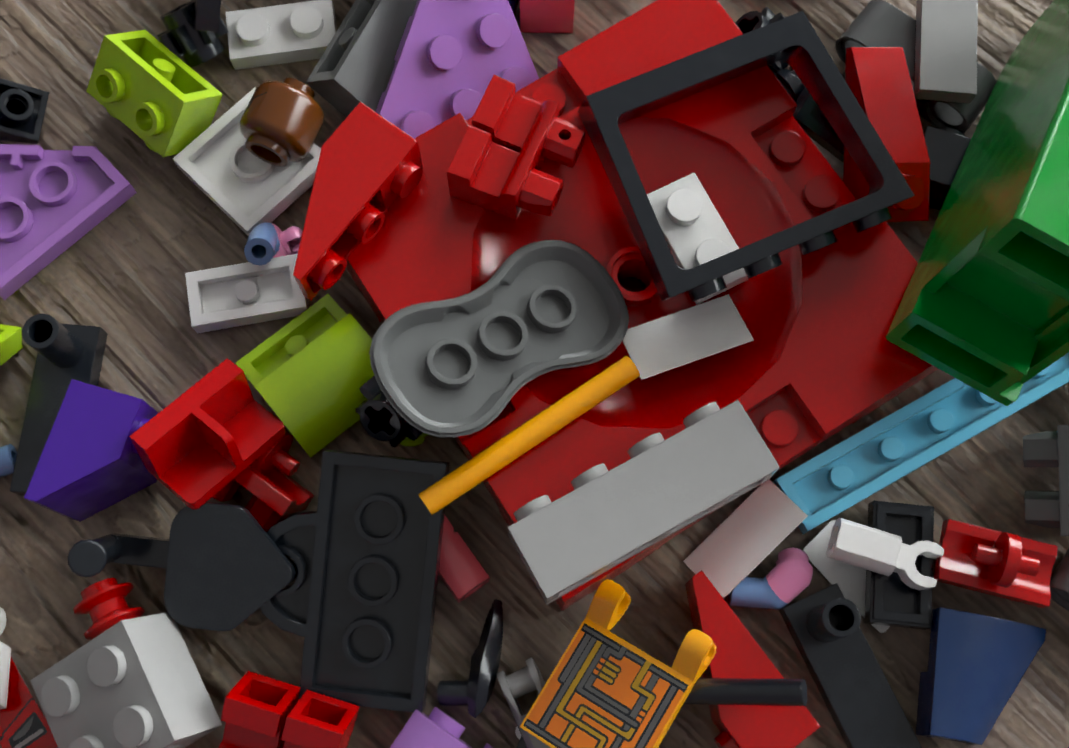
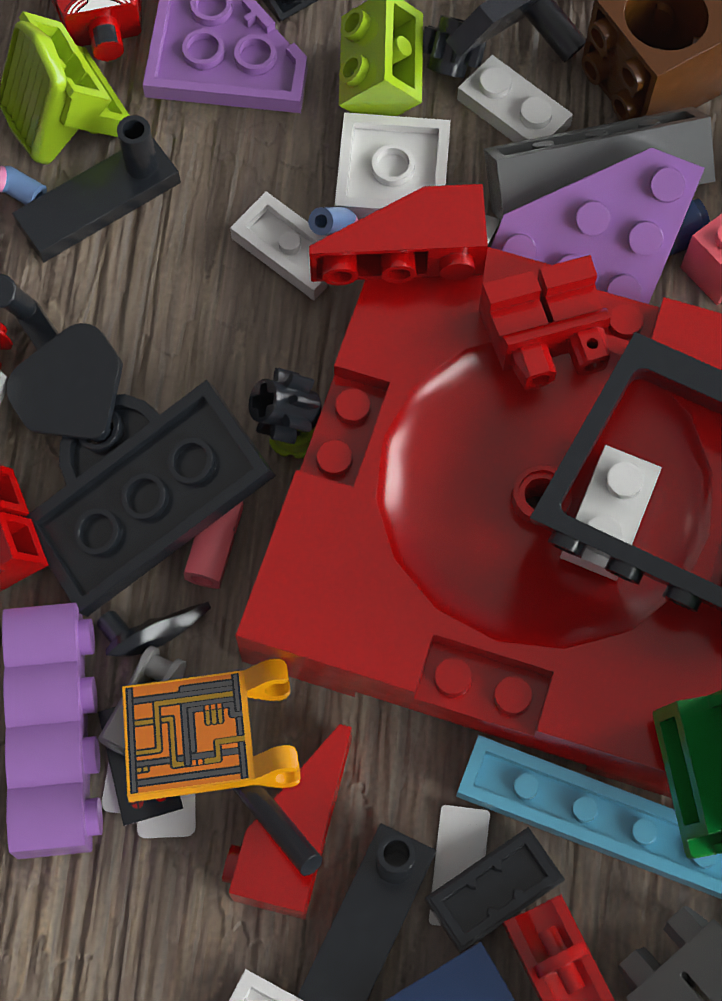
camera: 50 degrees right, 5 degrees down
(90, 454) = (83, 242): dark purple slope -> none
(207, 436) = (153, 296): red panel -> none
(271, 485) = (164, 354): red hips -> none
(281, 121) = (435, 154): reddish brown head -> none
(313, 373) = (266, 330): lime brick -> none
(465, 357) = (352, 411): dark grey plate -> none
(529, 435) = (341, 509): light orange bar -> none
(641, 500) = (352, 620): light grey brick -> none
(686, 336) = (523, 567): white sticker -> none
(746, 537) = (410, 749): white sticker -> none
(779, 586) = (392, 806): arm -> none
(881, 552) = (485, 857): white bar -> none

